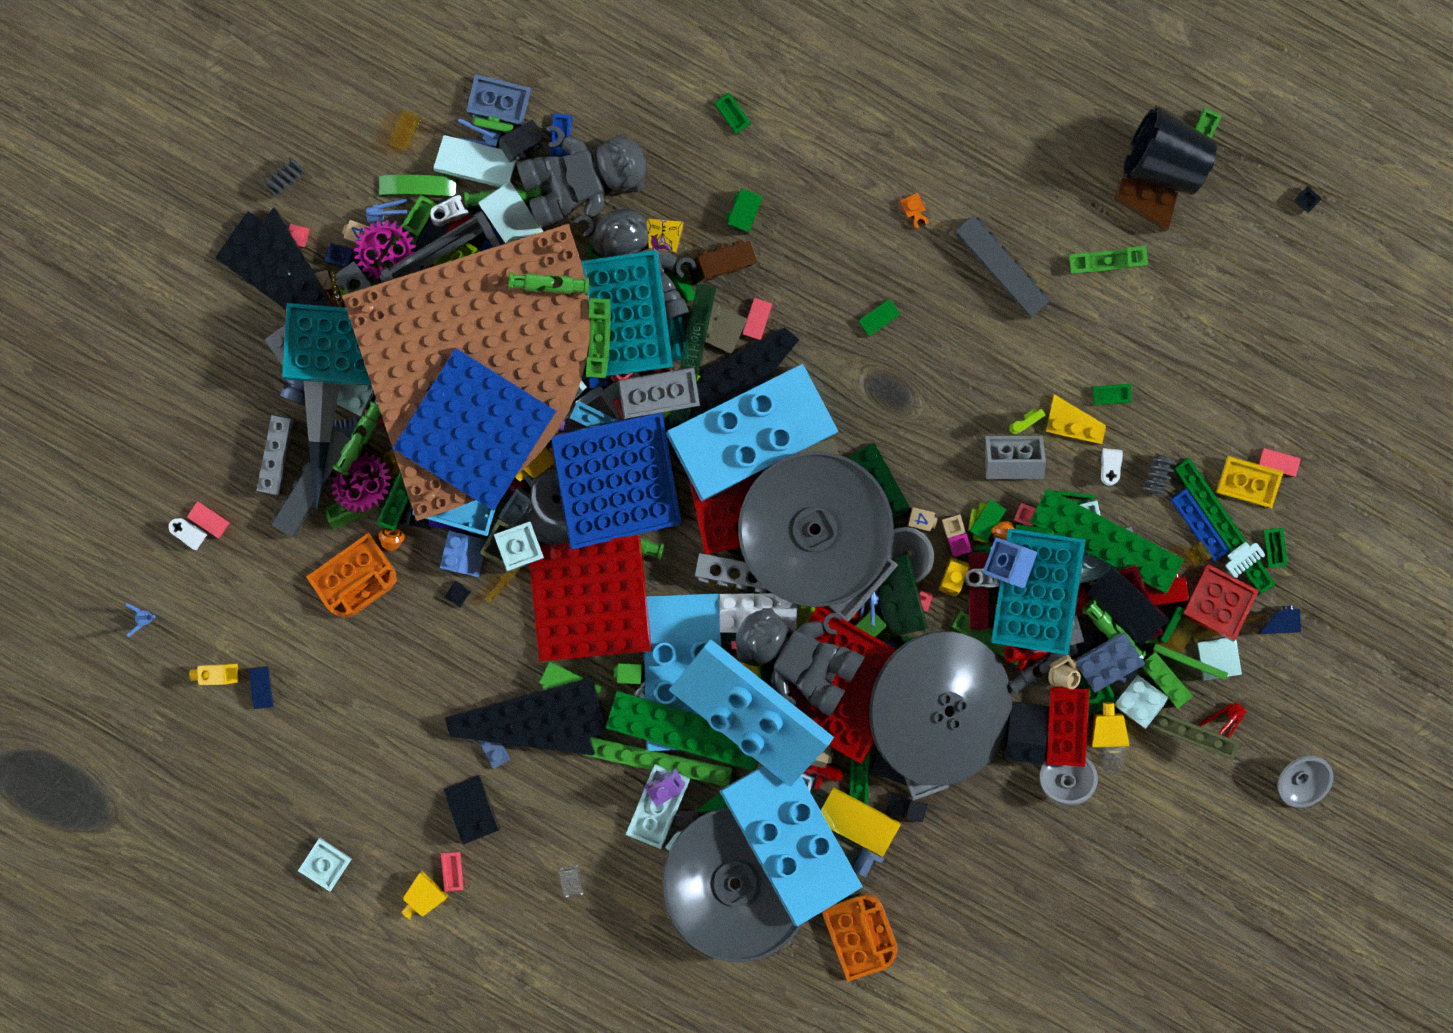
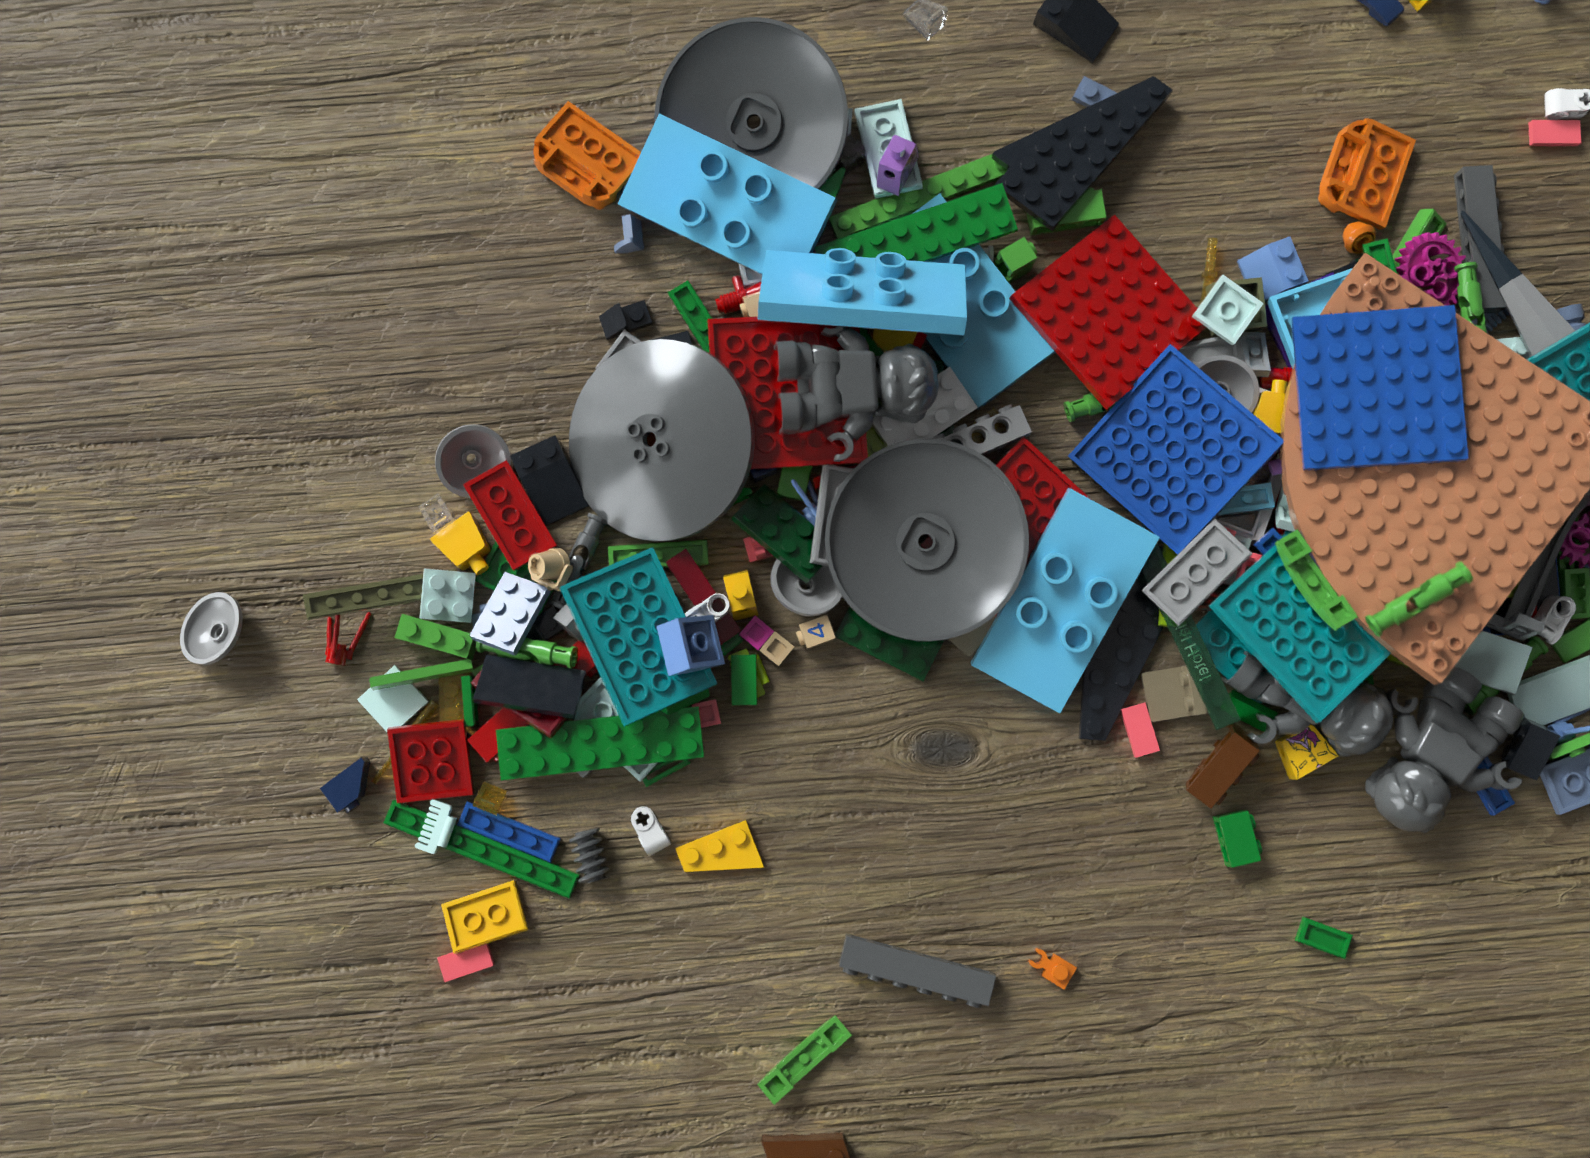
camera: 145 degrees right, 5 degrees down
(275, 455) = (1539, 241): light grey brick -> none
(457, 594) = (1246, 228): black plate -> none
(859, 822) = (666, 271): yellow tile -> none
(879, 317) = (1010, 821): green tile -> none
(1001, 530) = (723, 676): orange cone -> none
(1014, 457) = (760, 768): light grey slope -> none
(1016, 653) = (618, 552): red piece -> none
(1030, 418) = (772, 822): lime plate -> none
(1111, 394) = (700, 911): green tile -> none
(1274, 544) = (400, 868): green tile -> none

